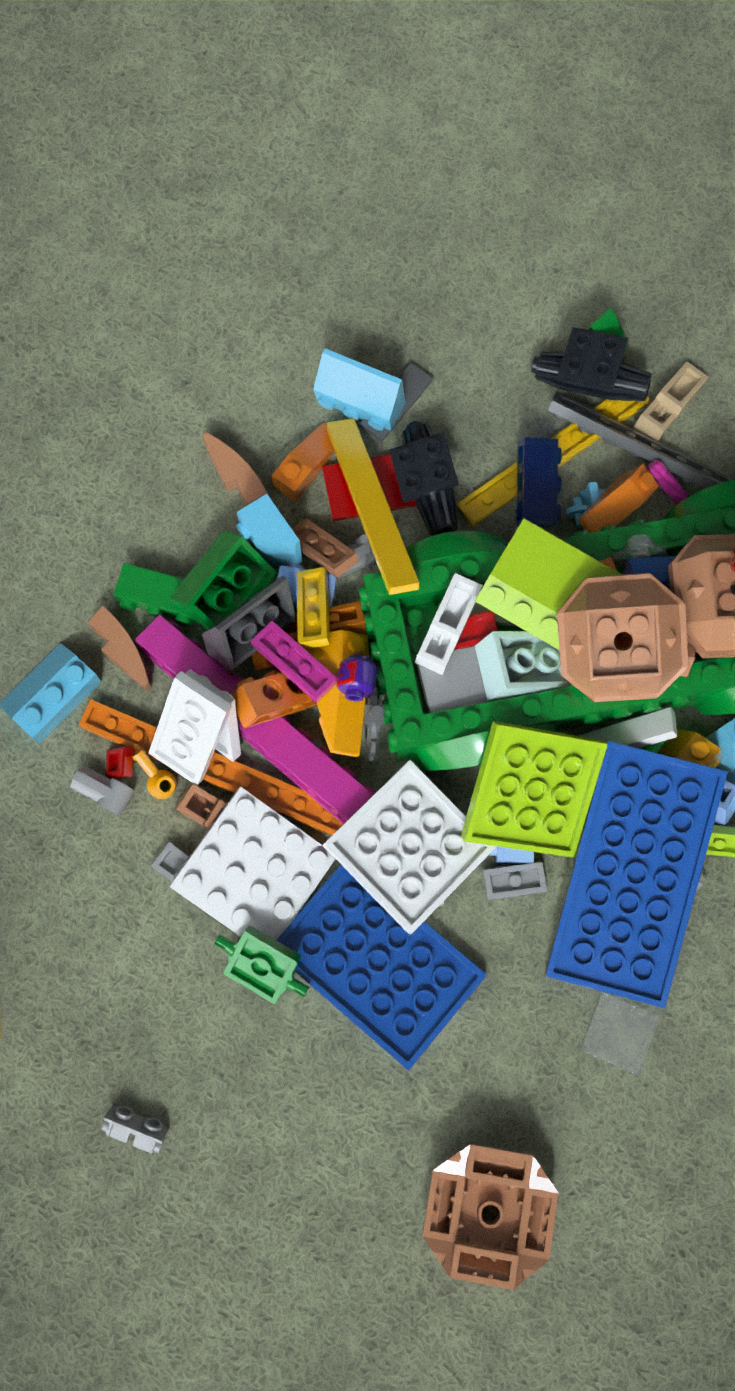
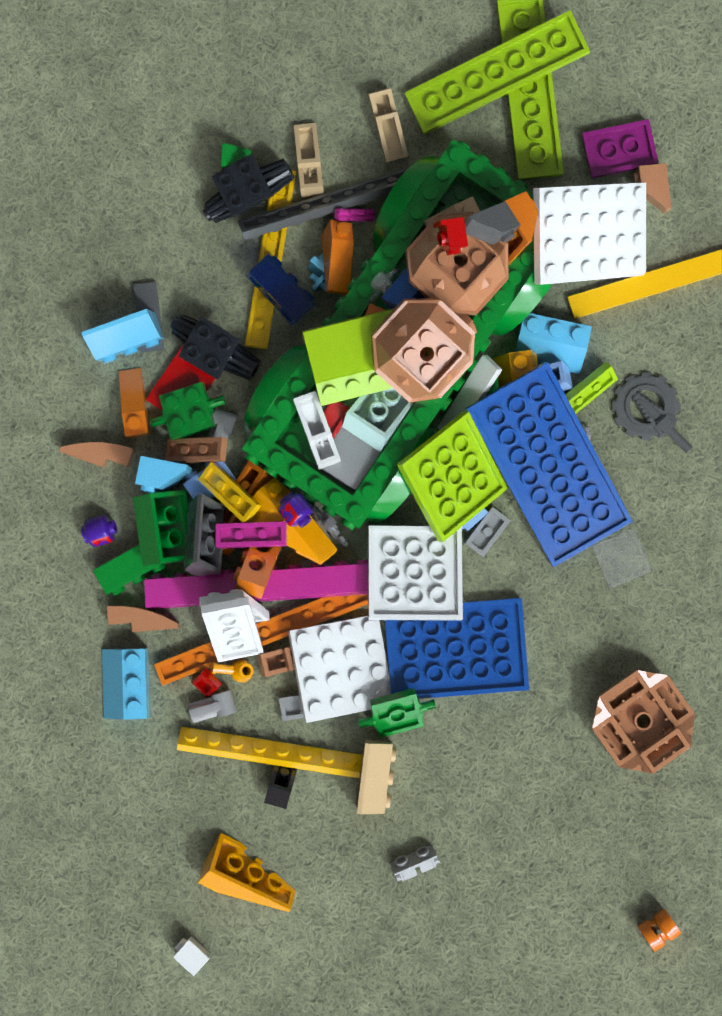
camera: 45 degrees left, 10 degrees up
(94, 921) = (280, 786): none -> black slope
(111, 885) = (270, 752): none -> yellow plate
(165, 536) = (99, 530): none -> dark purple head
(180, 1005) = (375, 777): none -> tan slope
(337, 509) = (187, 411): none -> green plate
(372, 507) = (203, 400): yellow tile -> none

